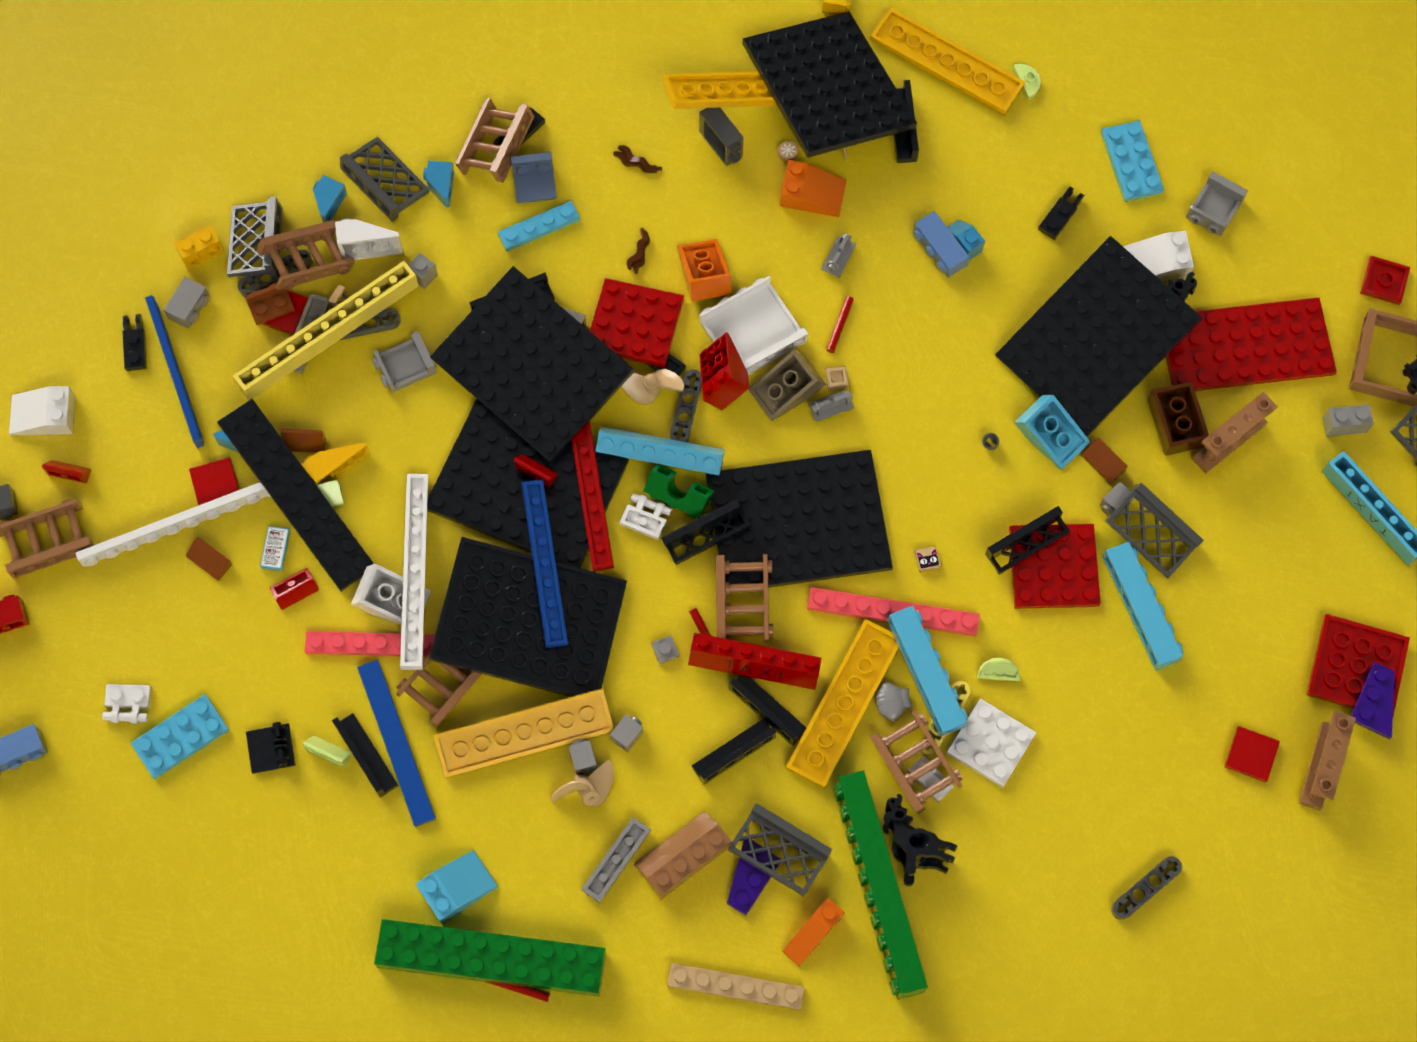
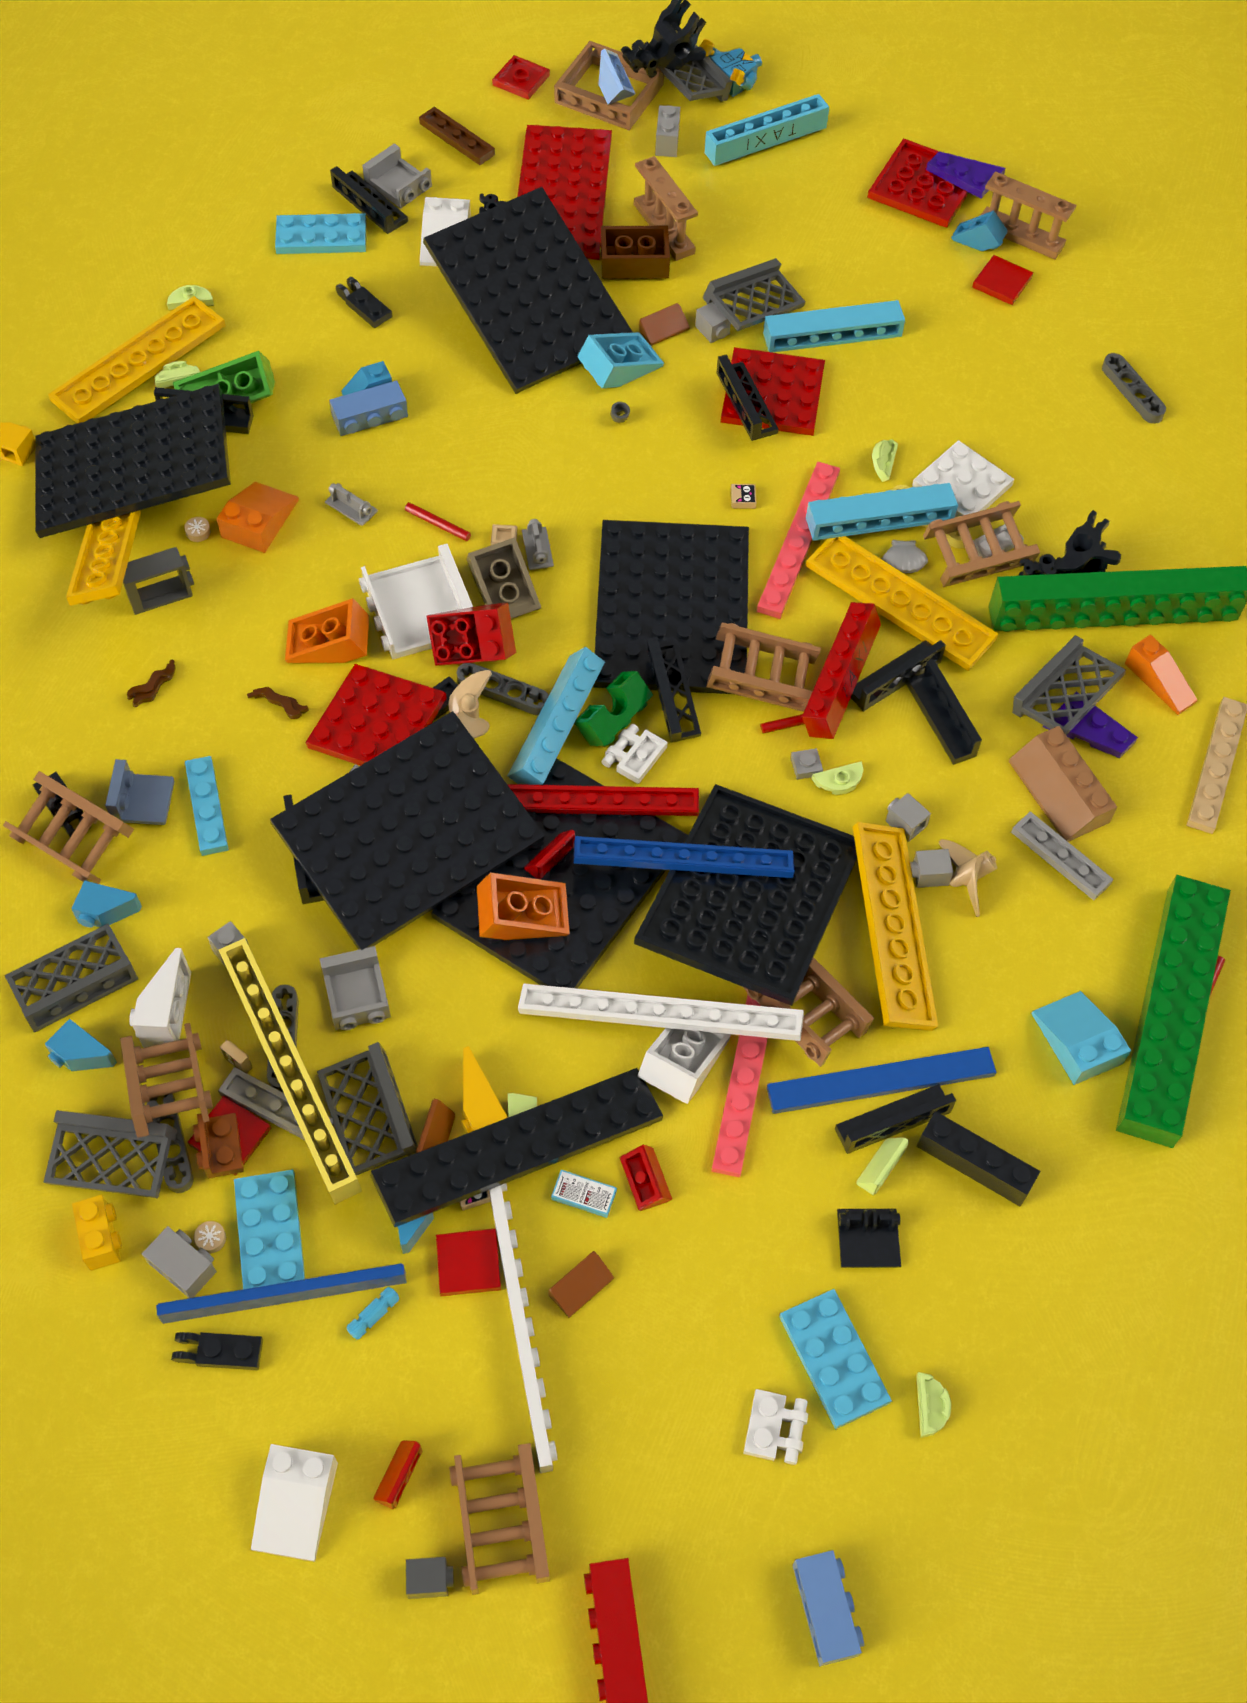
camera: 80 degrees left, 10 degrees down
(154, 806) = (933, 1404): none -> yellowish green plate
(171, 430) = (372, 1313): none -> medium azure axle
(209, 317) = (210, 1236): none -> tan tile
(217, 353) = (269, 1229): none -> medium azure plate
(321, 405) = (391, 1100): none -> dark grey fence
(339, 817) = (978, 1158): none -> black brick
(483, 459) = (521, 908): none -> orange slope
(655, 678) = (840, 779): none -> yellowish green plate
(936, 137) = (242, 377): none -> bright green wedge
(940, 92) = (174, 372): none -> yellowish green plate
(1177, 183) = (367, 200): none -> black fence
(1285, 241) = (457, 135): none -> reddish brown plate
(1303, 725) = (981, 232): none -> dark azure slope
(1384, 356) = (613, 78): none -> light blue slope

